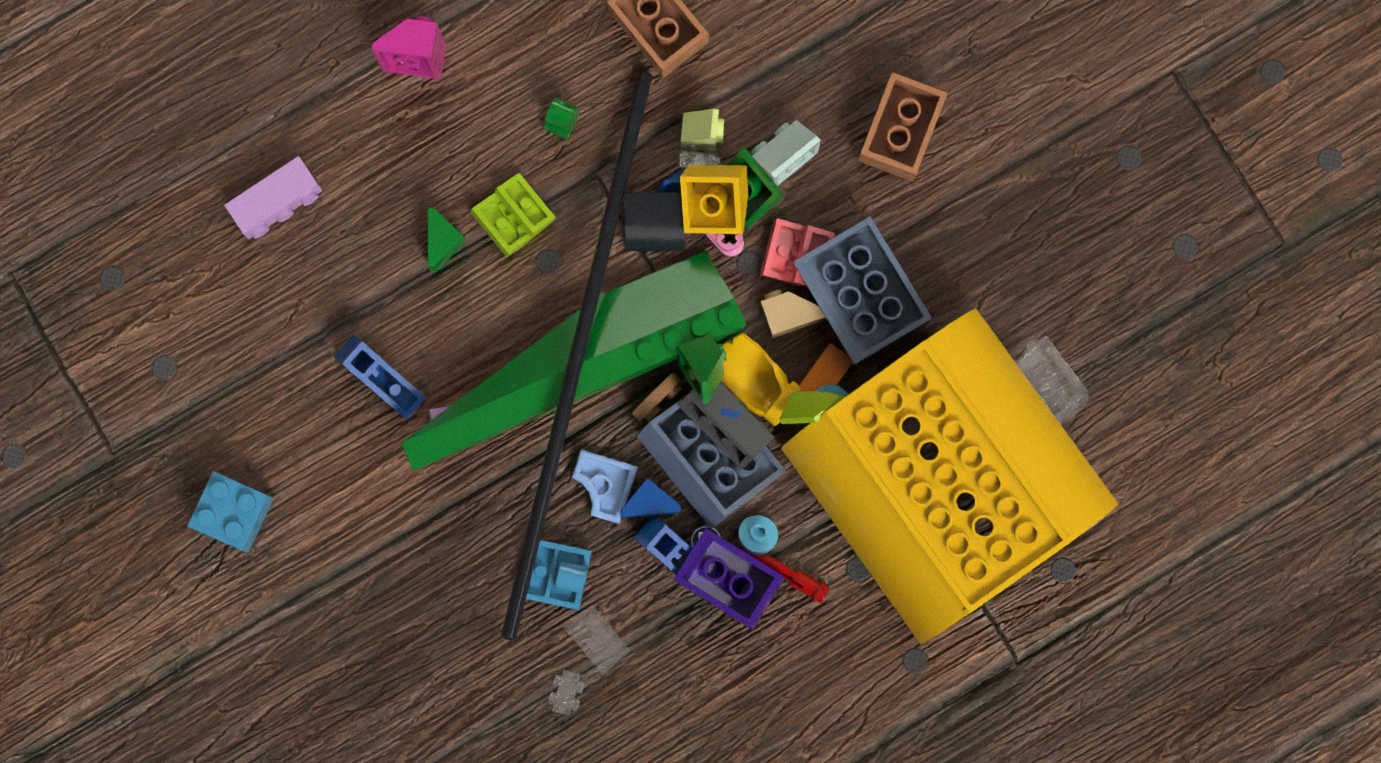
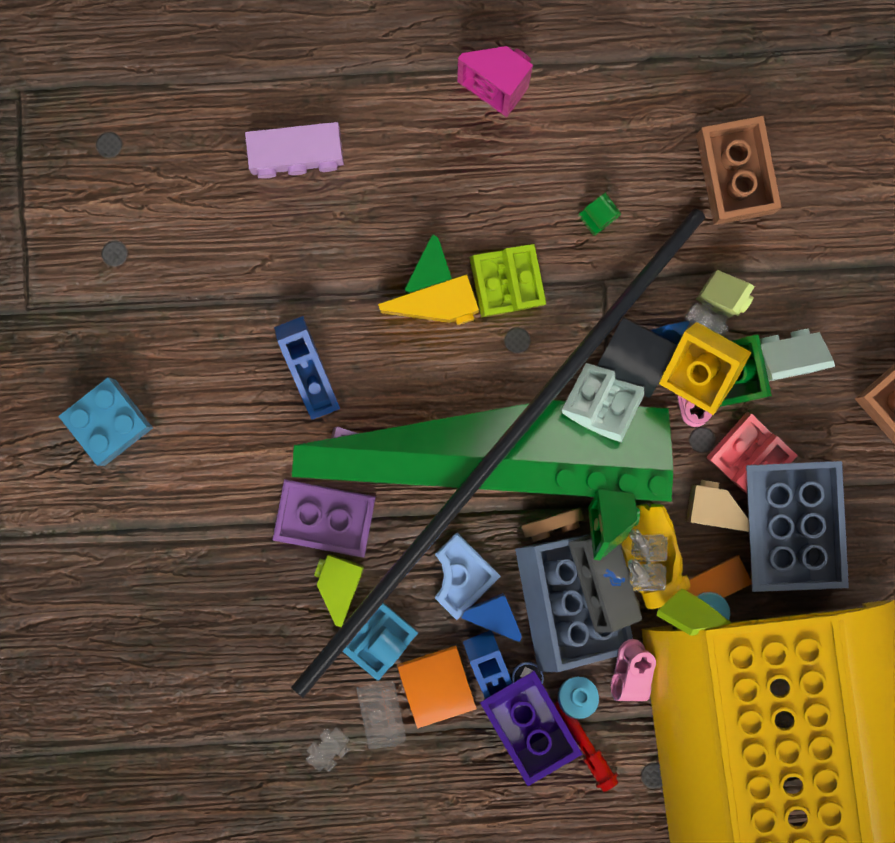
camera: 25 degrees right, 5 degrees up
(461, 497) = (324, 518): none -> medium lavender tile
(465, 262) = (441, 302): none -> yellow slope
(500, 544) = (338, 585): none -> lime slope
(631, 589) = (436, 686): none -> orange slope
(645, 273) = (603, 402): none -> light aqua slope
(750, 383) = (644, 551): none -> clear piece
(792, 488) = (633, 672): none -> bright pink piece

